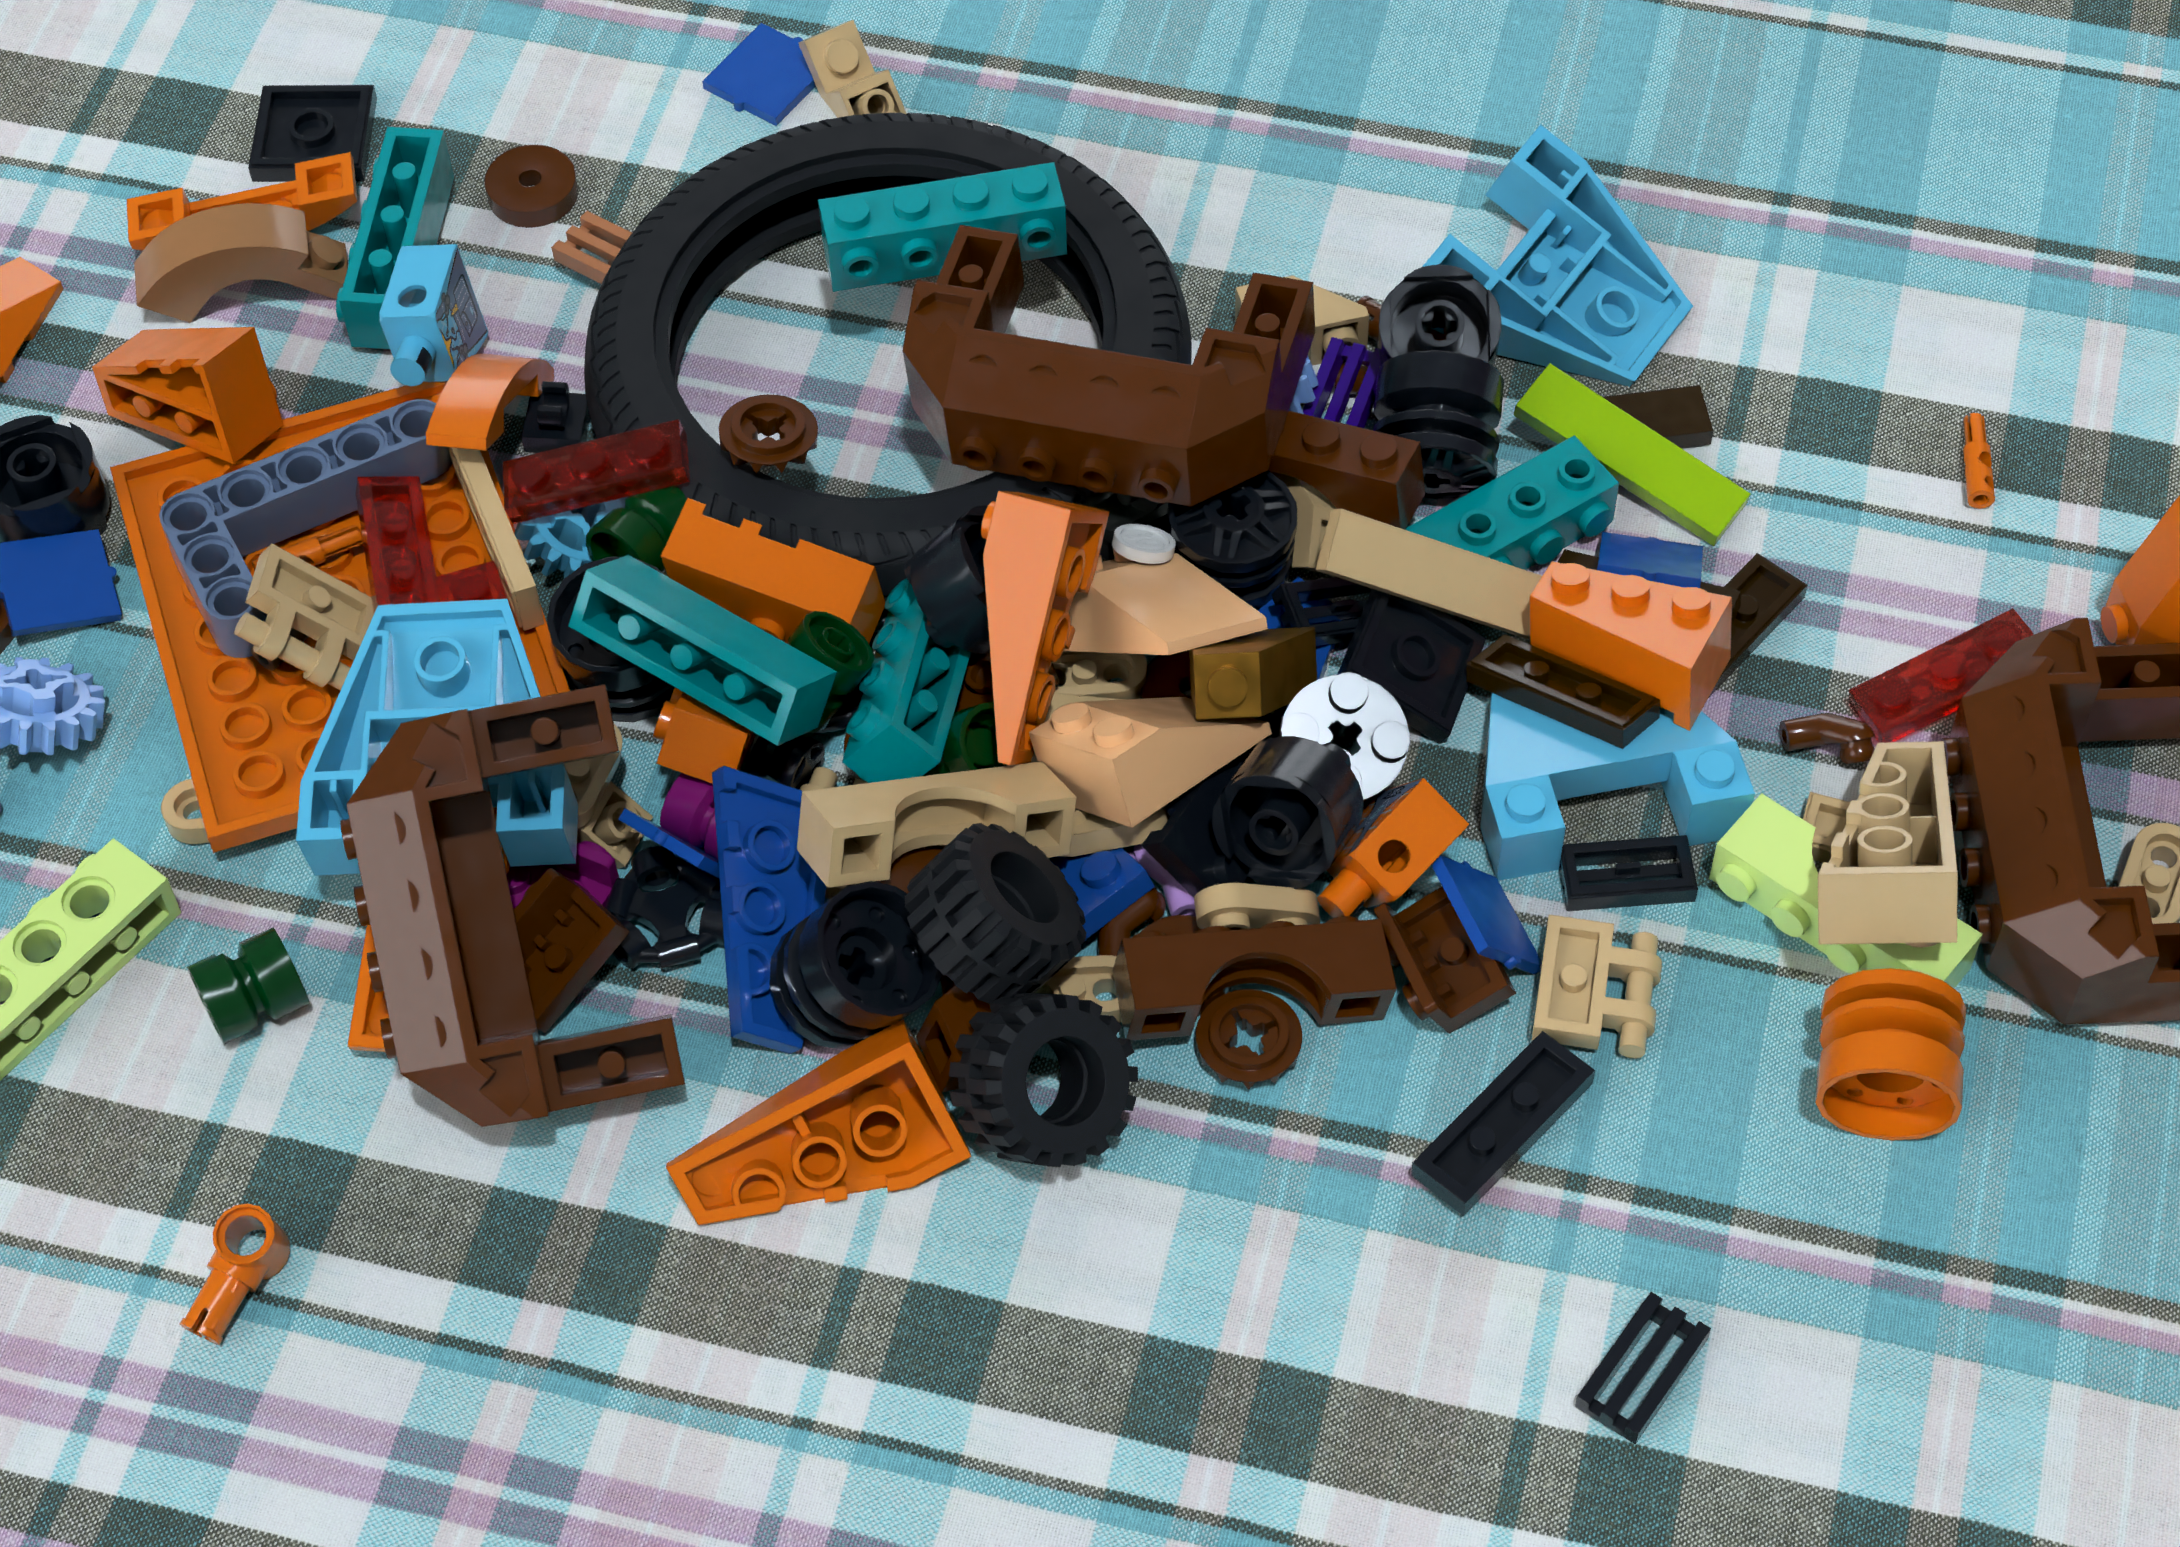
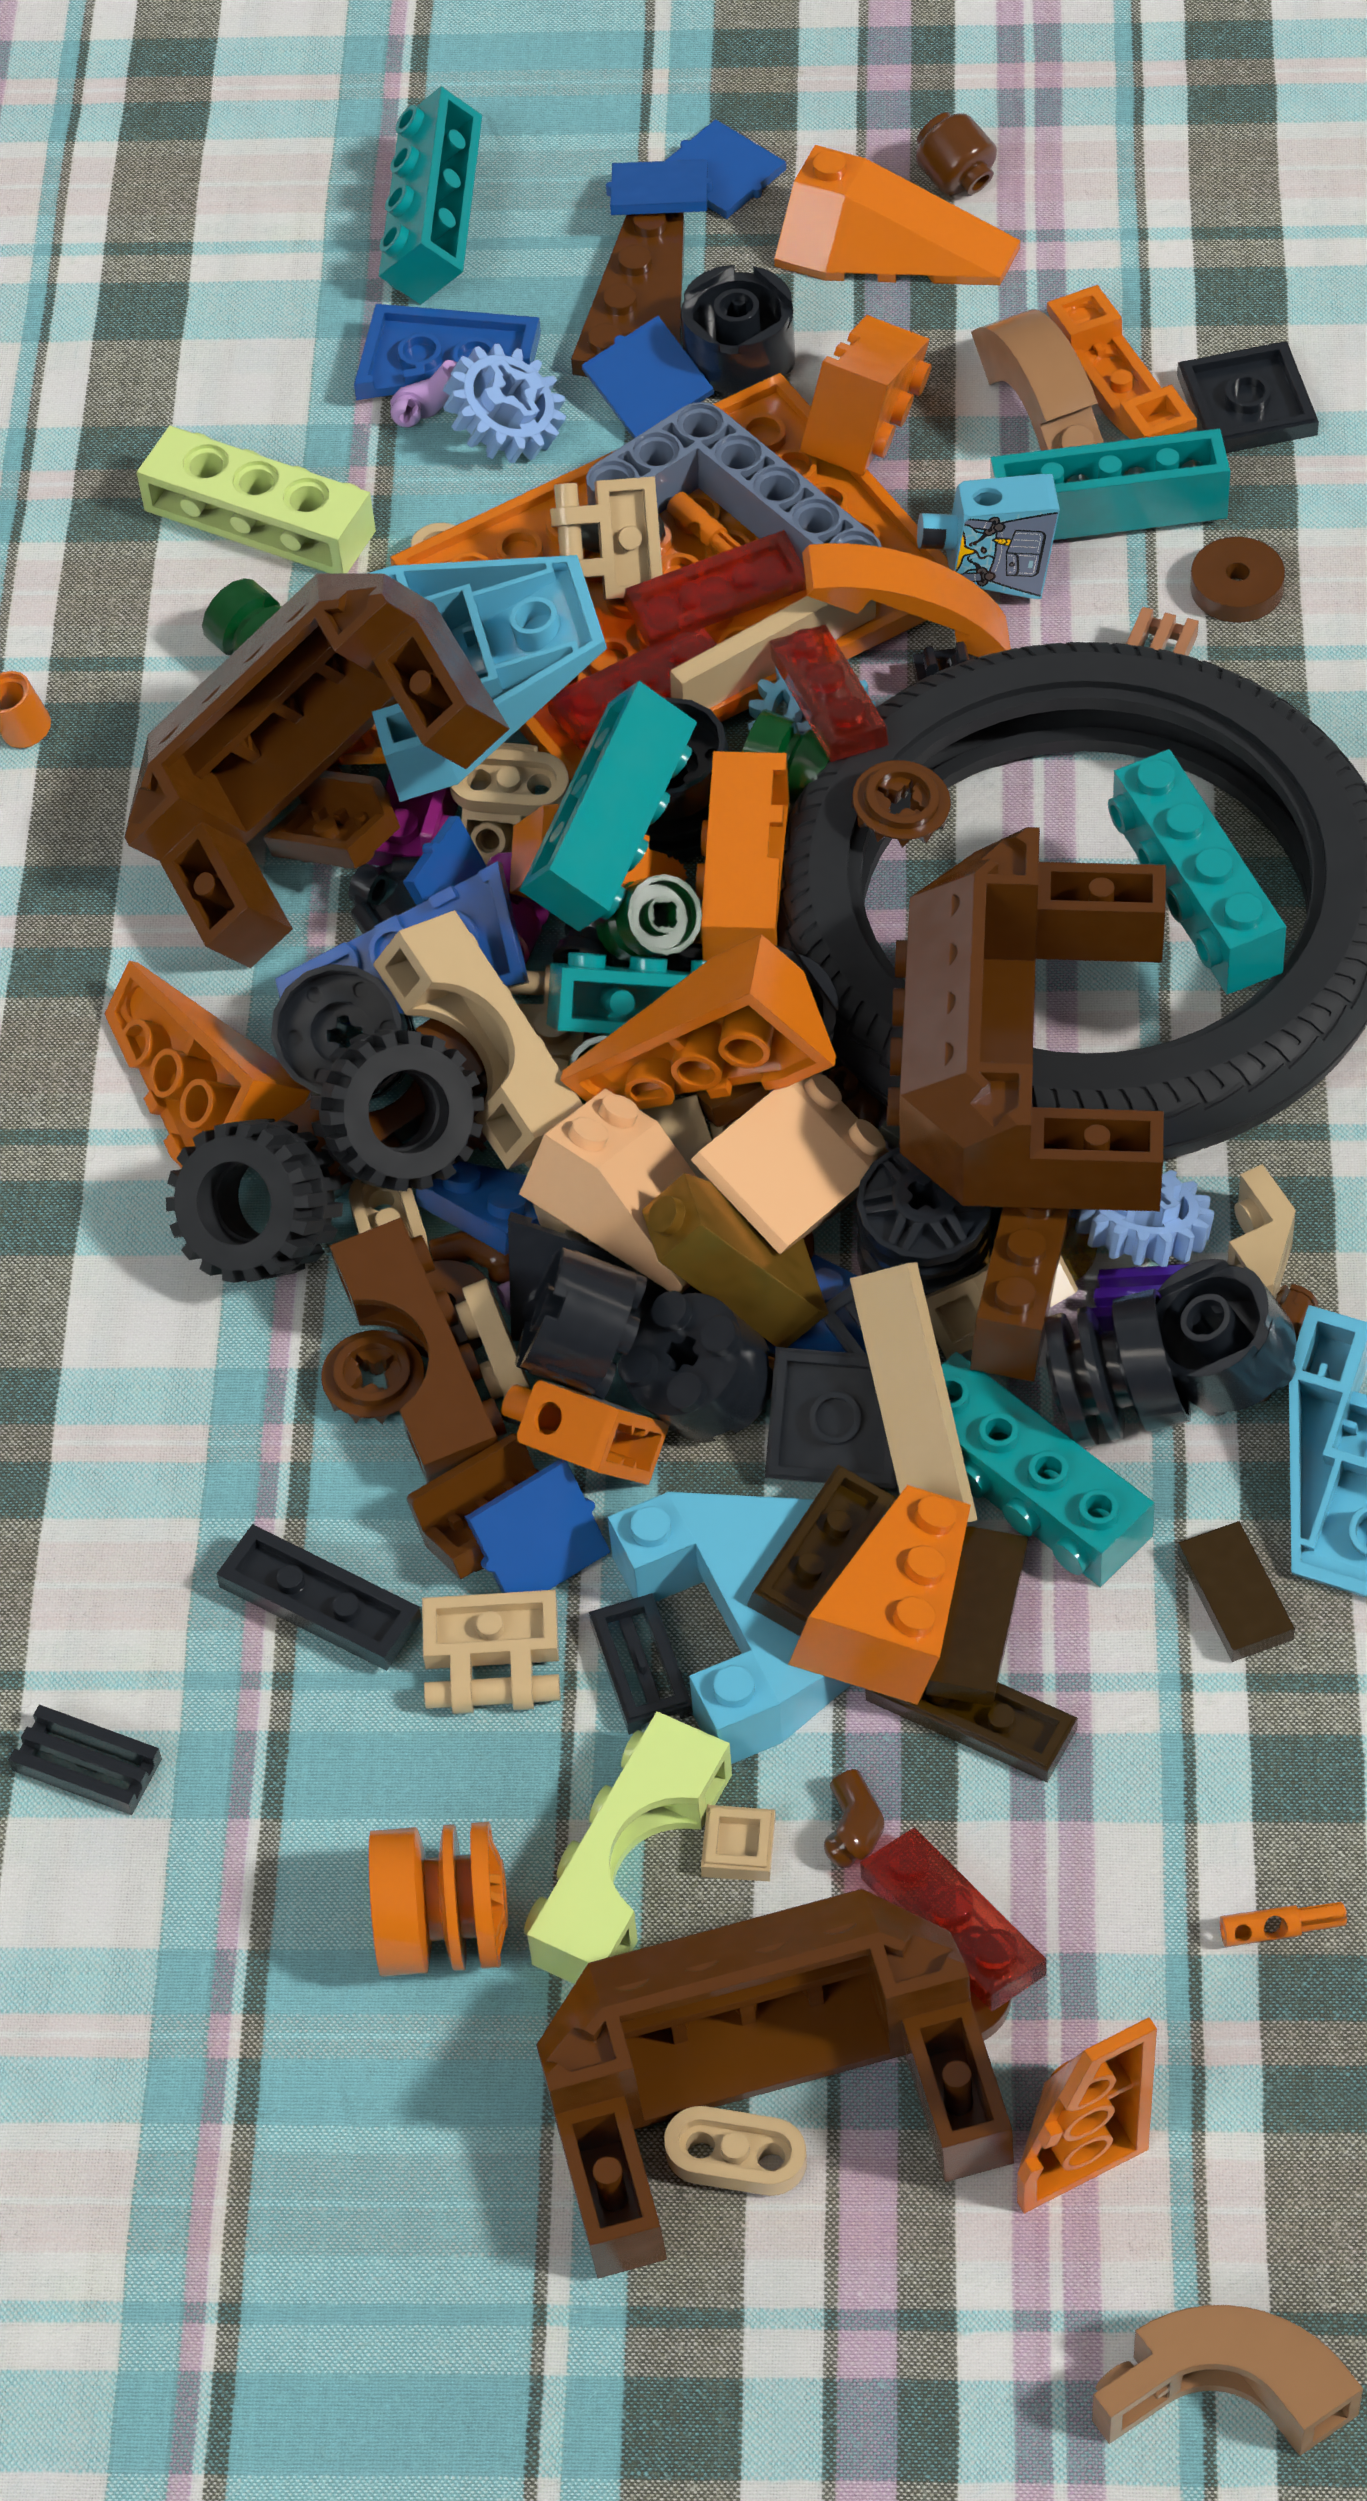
camera: 80 degrees right, 0 degrees up
(1143, 543) = (864, 1135): white piece -> none
(1634, 454) = (1167, 1574): lime tile -> none
(1652, 559) = (1022, 1609): blue piece -> none
(1896, 859) = (655, 1857): tan wedge -> none

